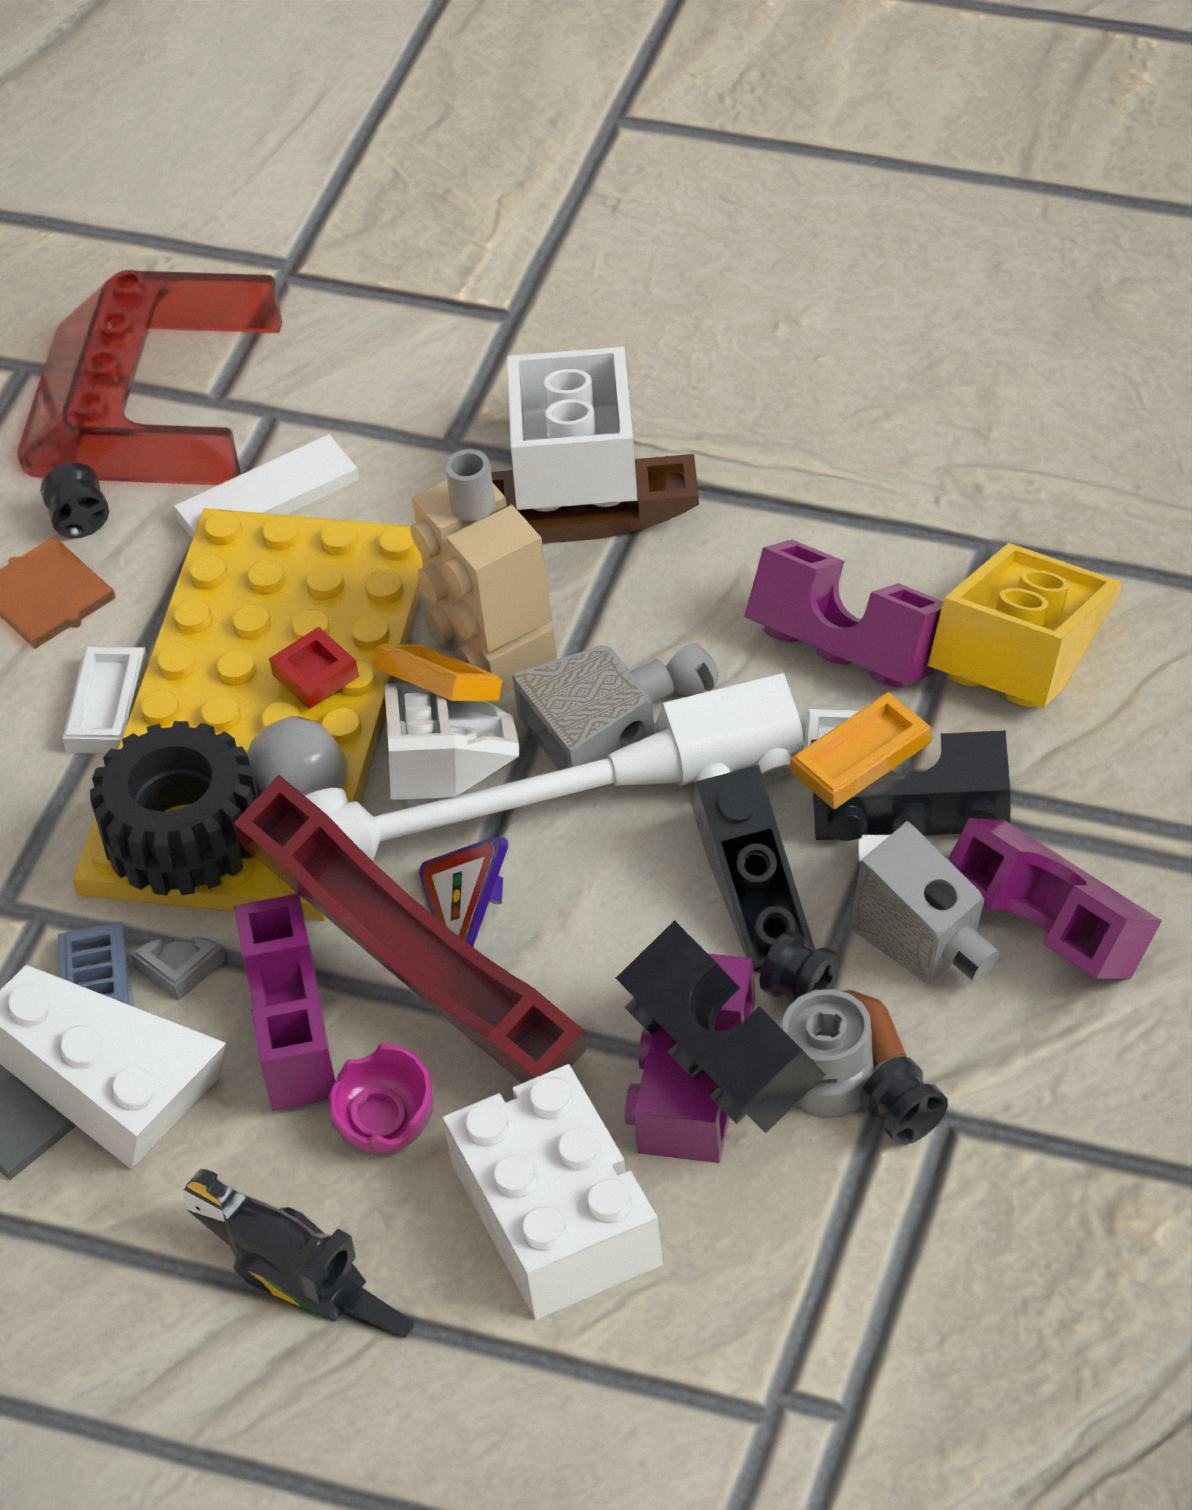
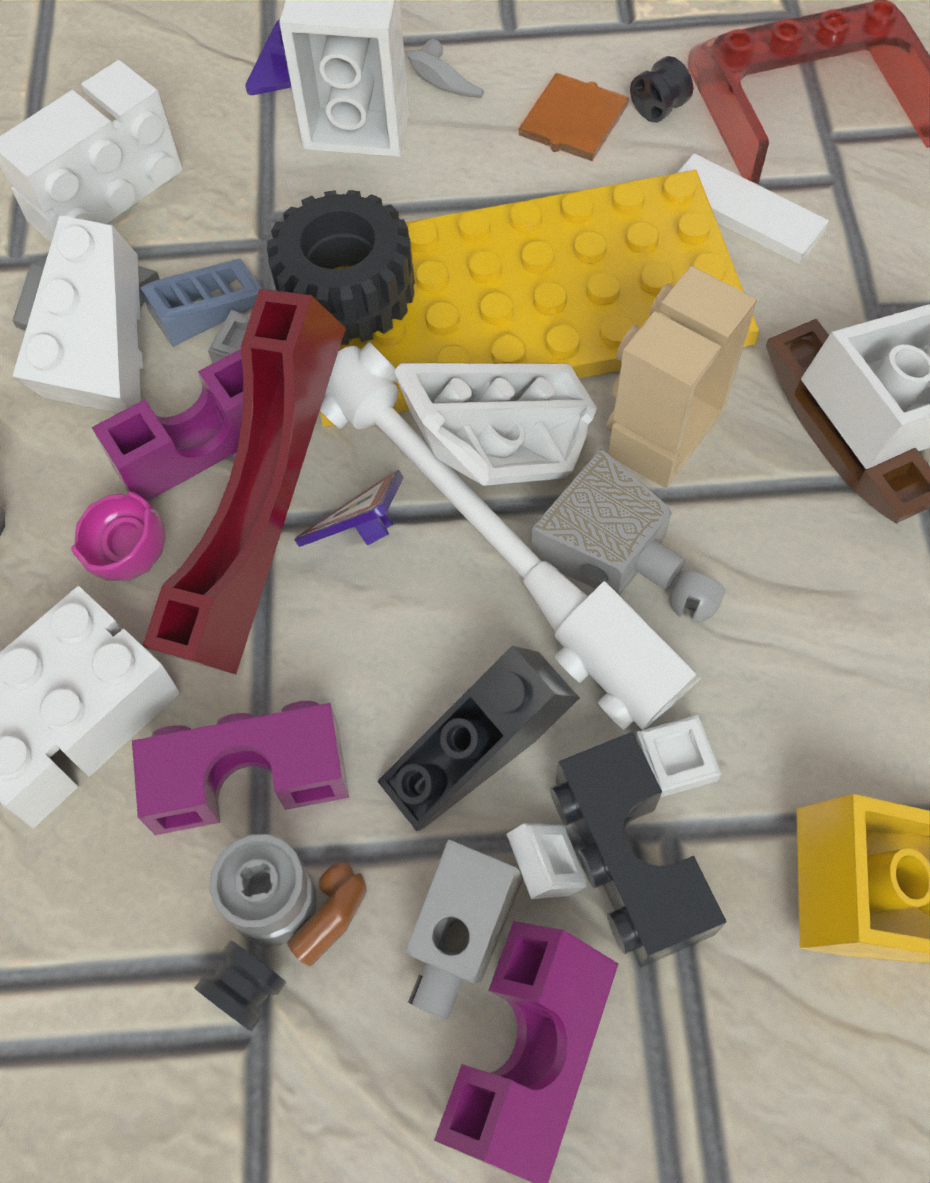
camera: 65 degrees right, 15 degrees up
(103, 698) = (481, 188): white tile -> none
(298, 752) = (436, 329): light grey hair -> none
(314, 667) = (548, 304): red tile -> none
(437, 672) = (581, 394): light orange tile -> none
(470, 485) = (708, 296): light grey hinge -> none
(754, 1064) = (230, 731): black arch -> none
(798, 969) = (367, 826): black wheel -> none
(800, 600) = (814, 661): magenta arch -> none
(861, 750) = (630, 785): light orange tile -> none

